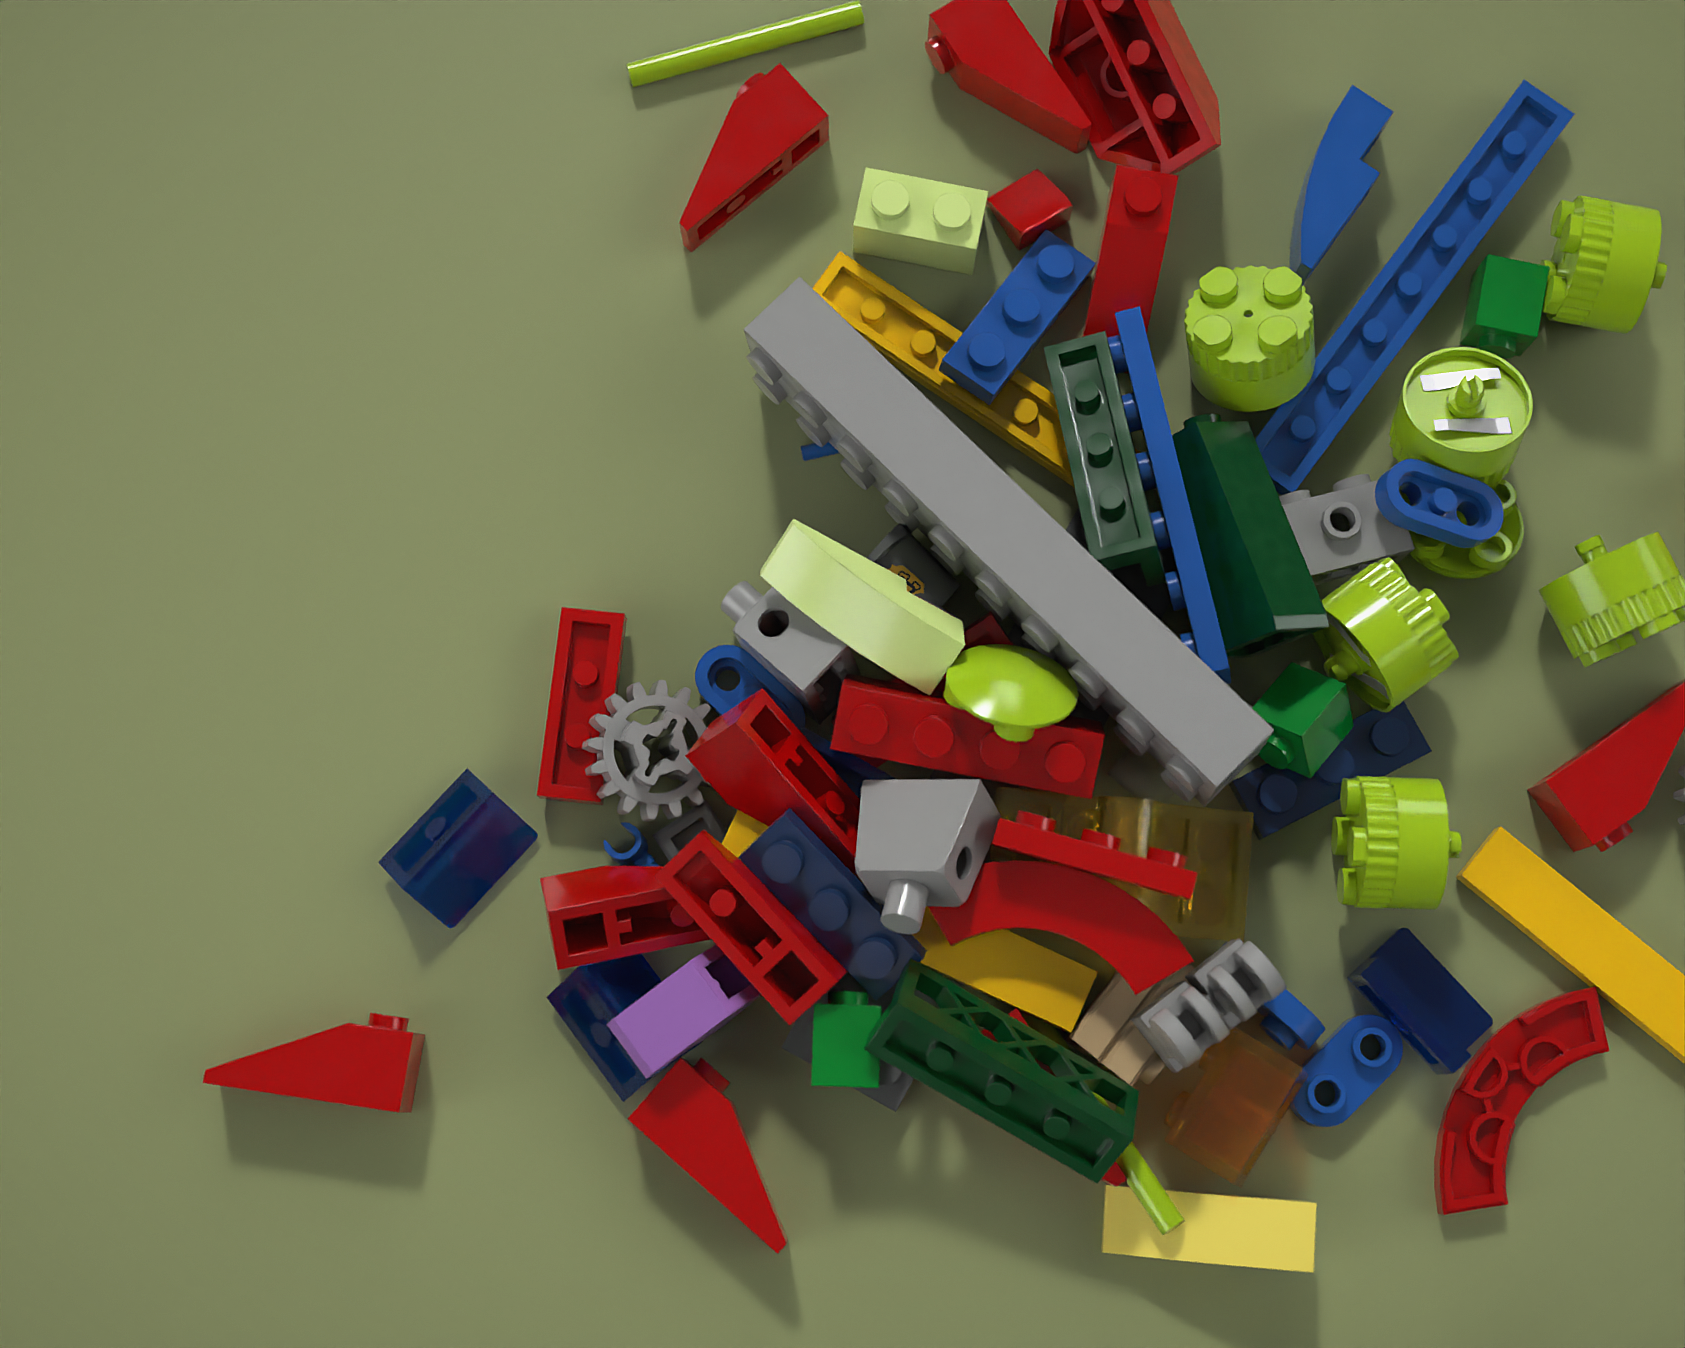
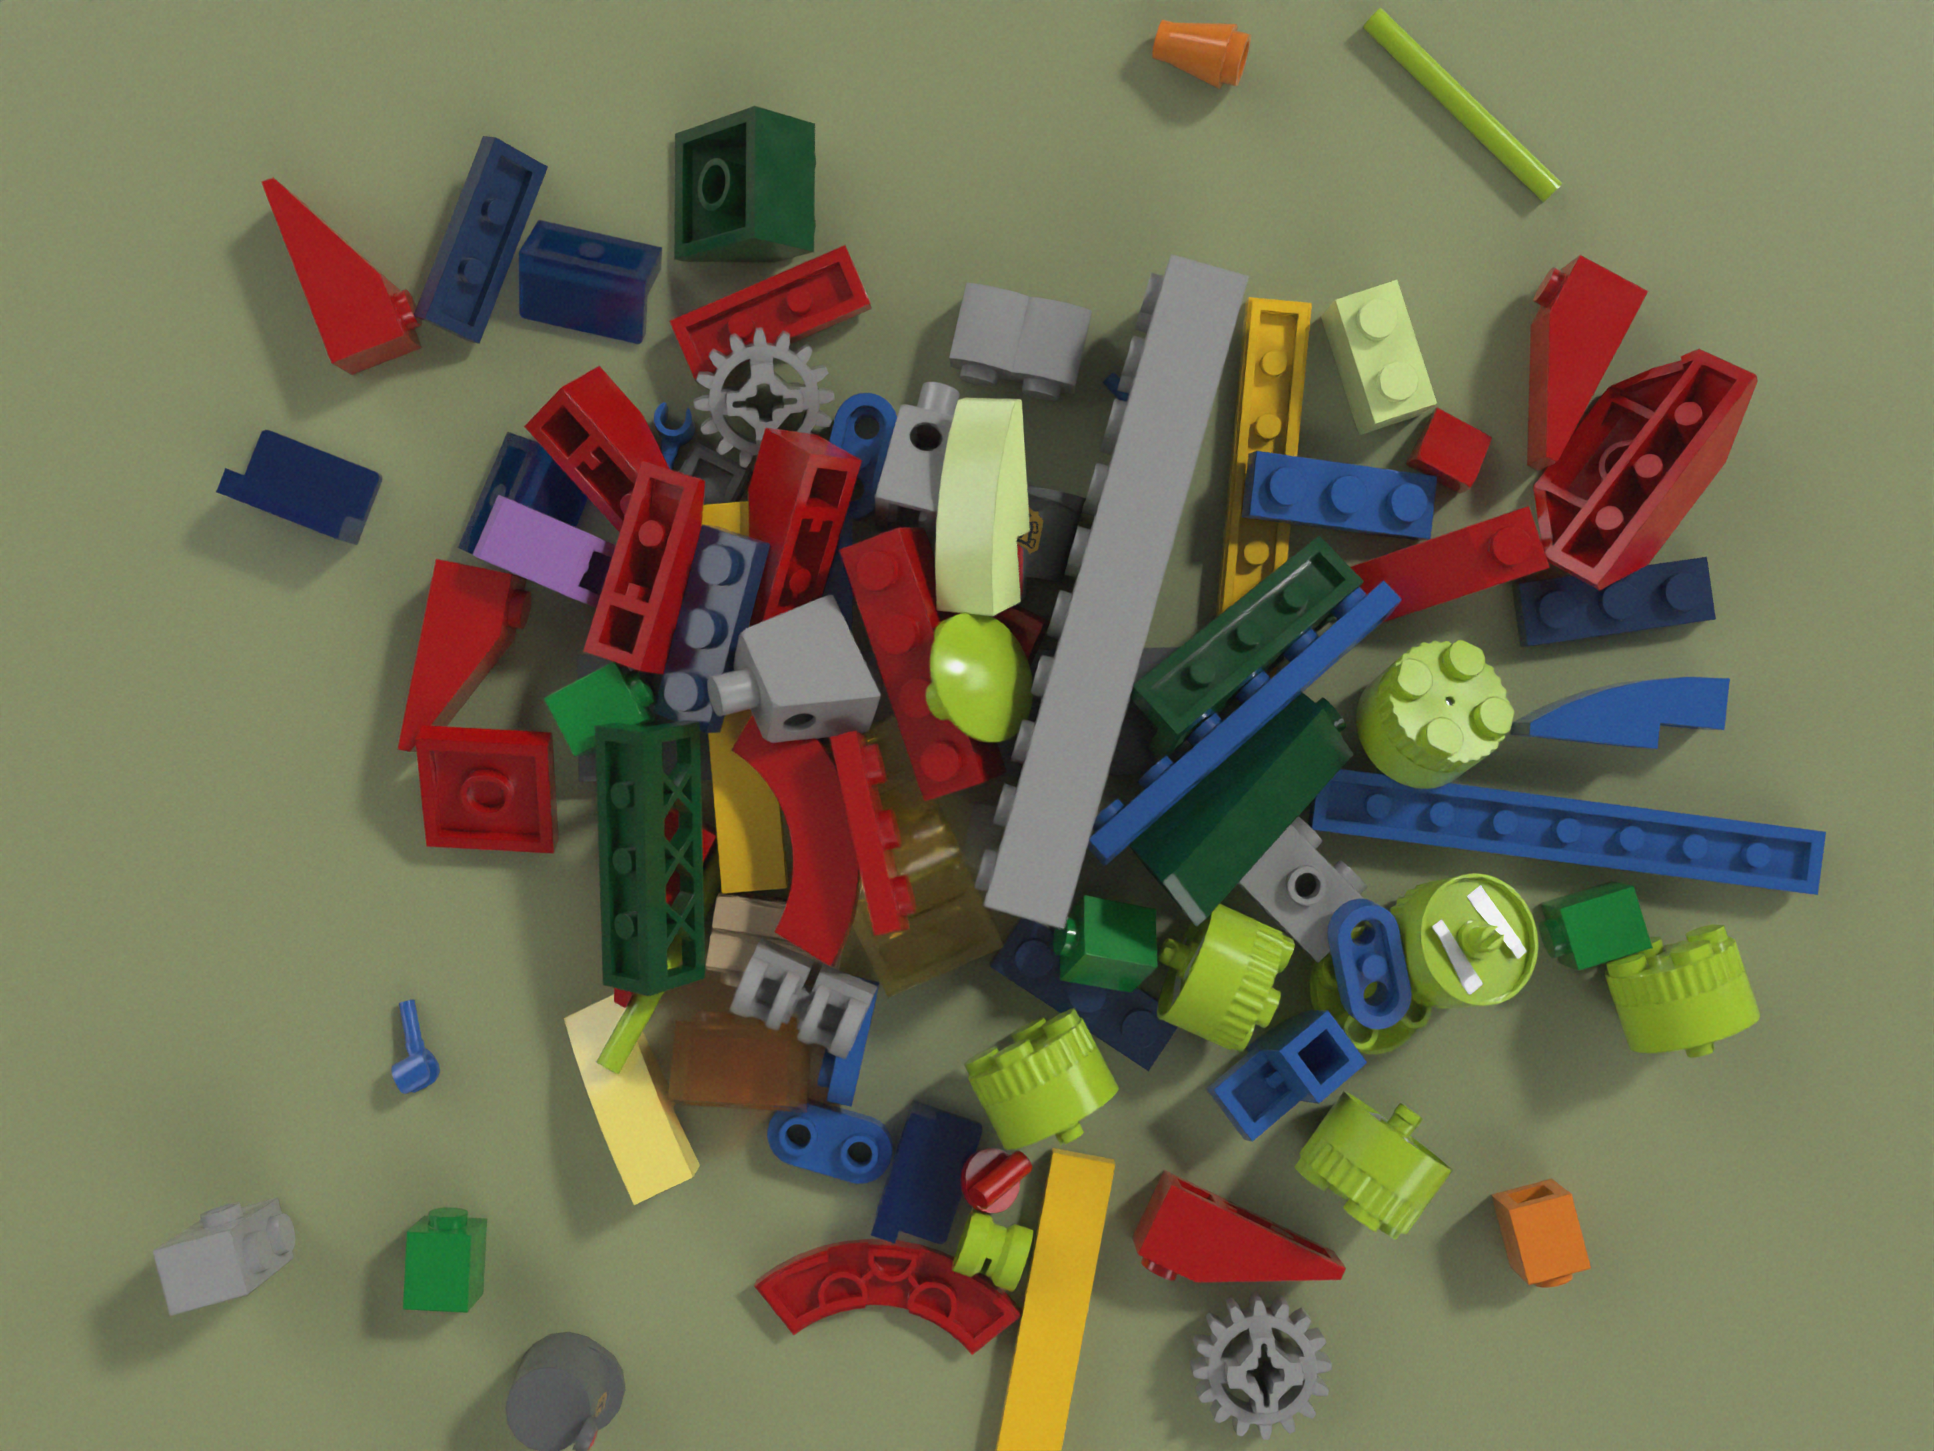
camera: 65 degrees right, 10 degrees up
(367, 921) = (481, 240): none -> dark blue plate
(461, 667) = (745, 188): none -> dark green slope
(487, 1210) = (305, 487): none -> clear blue panel
(576, 222) = (1204, 50): none -> orange cone
(731, 506) = (1019, 341): none -> light grey brick
(761, 141) = (1371, 171): red slope -> none
(858, 1194) = (487, 789): none -> red plate
(1224, 176) = (1643, 600): none -> dark blue plate
(1457, 941) = (993, 1179): none -> red plate
(1489, 625) = (1286, 1065): none -> blue brick
(1522, 977) = (992, 1250): none -> lime wheel

